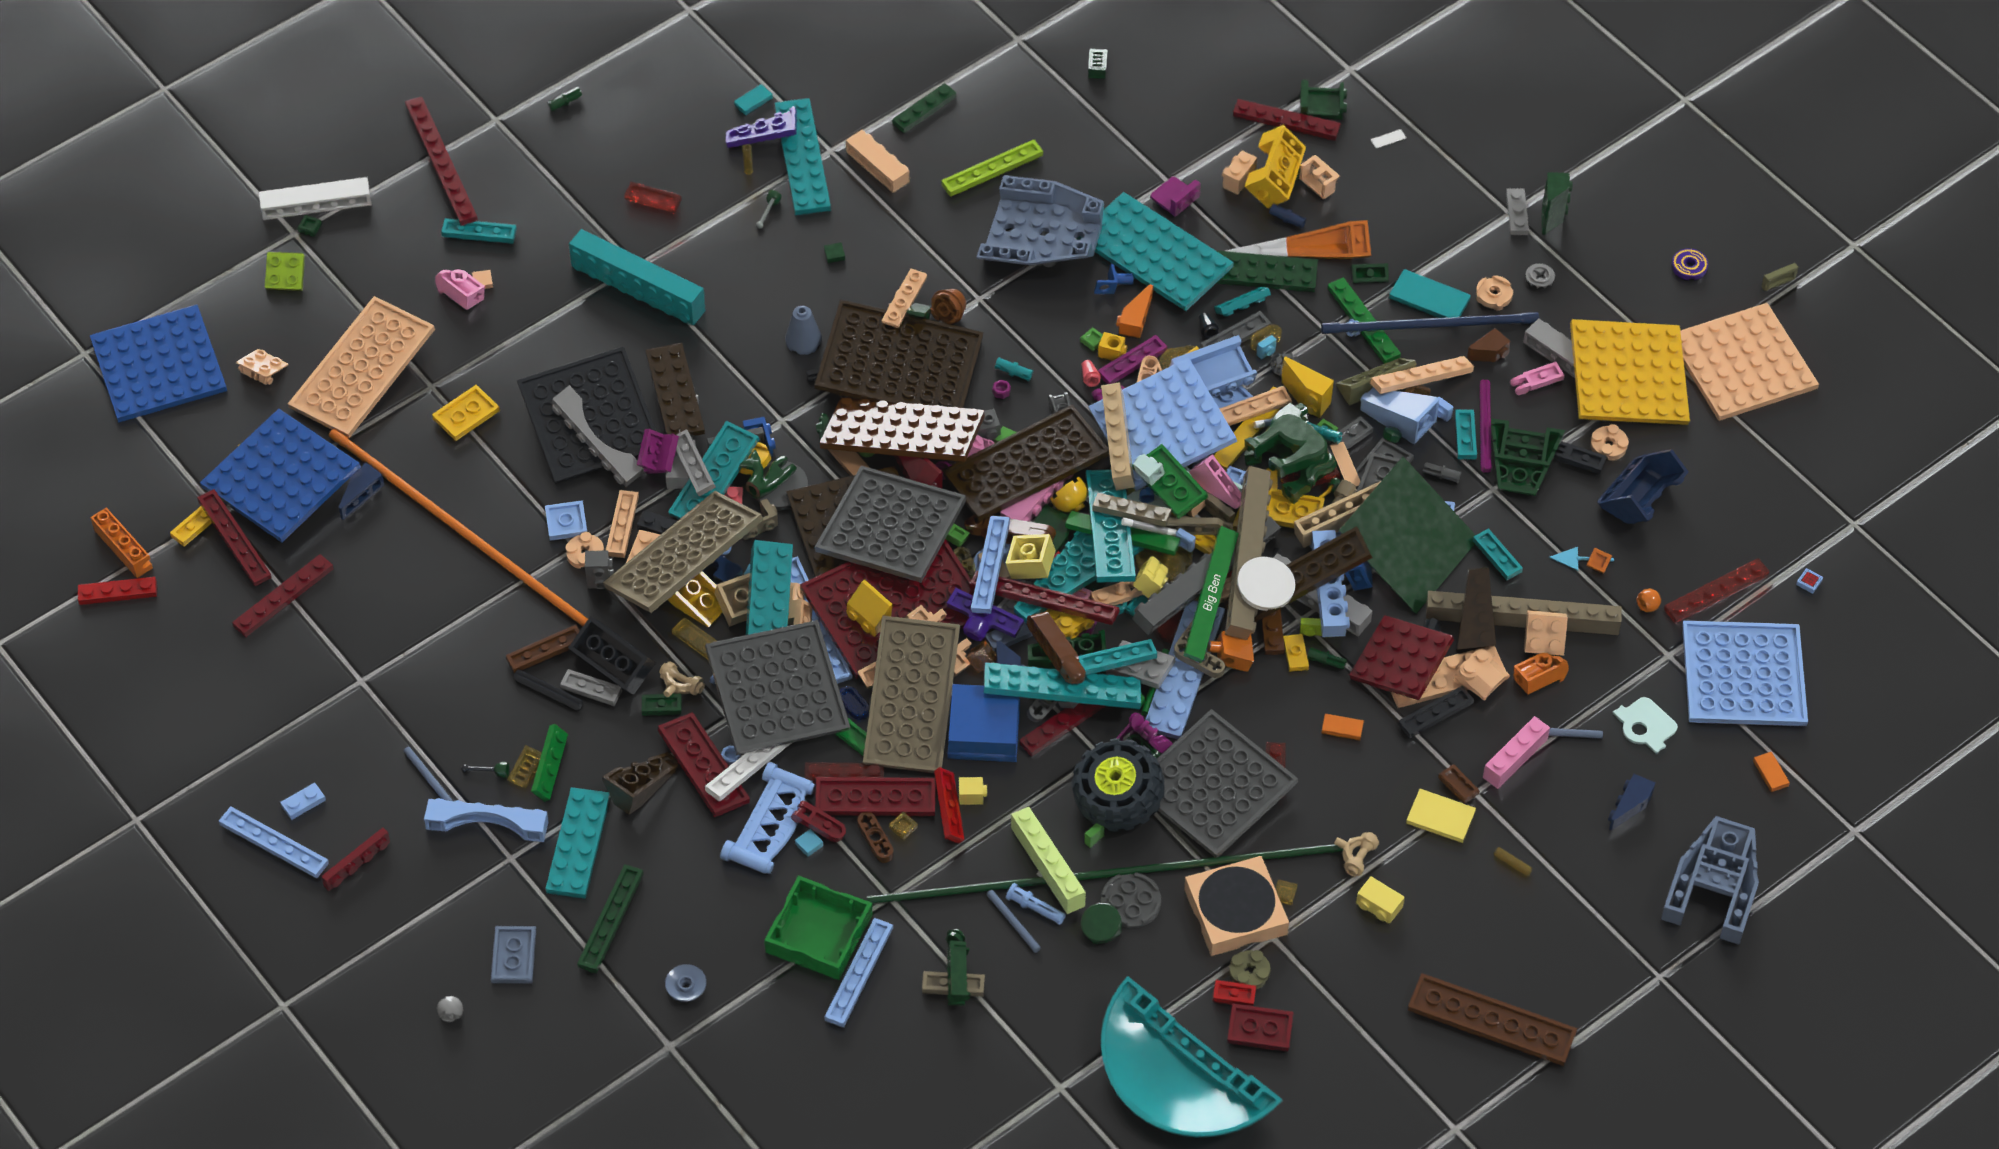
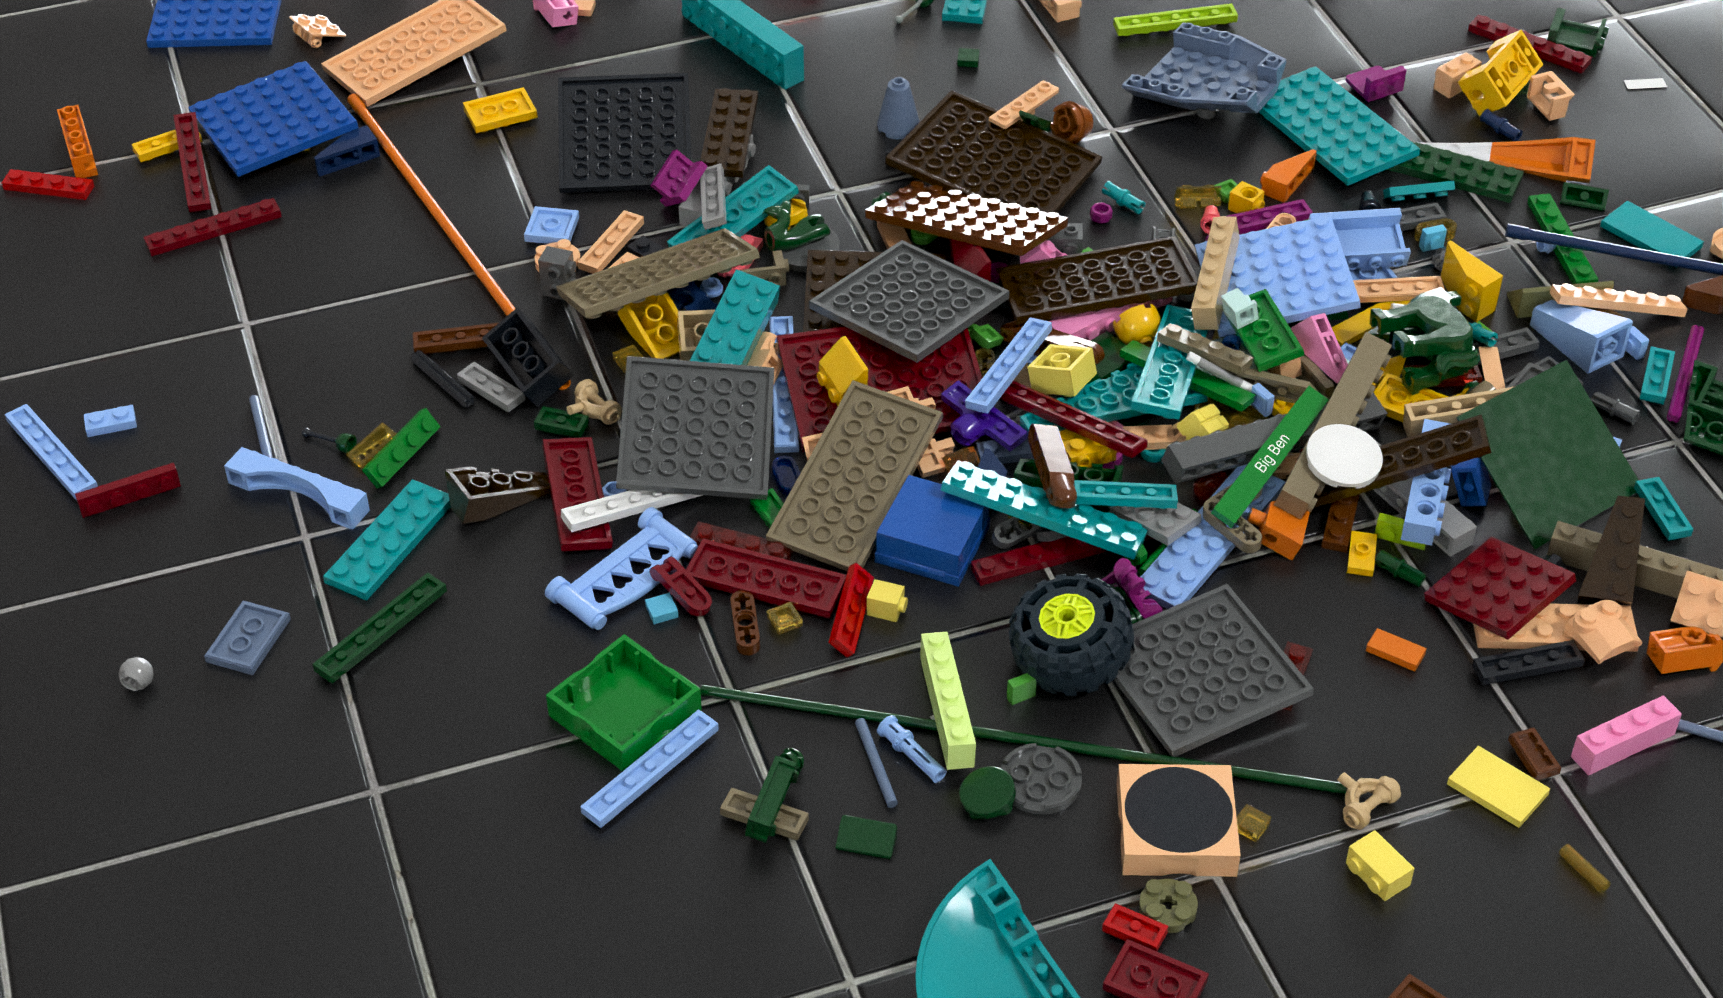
camera: 20 degrees right, 10 degrees down
(622, 464) = (604, 116): light grey arch -> none
(682, 976) = (429, 721): sand blue dish -> none
(761, 422) = (815, 191): blue bracket -> none
(1030, 980) = (866, 836): none -> dark green slope
(1079, 350) = (1207, 195): none -> clear yellow hinge
(1113, 279) = (1271, 142): blue bracket -> none
(1392, 434) = (1561, 353): dark green tile -> none

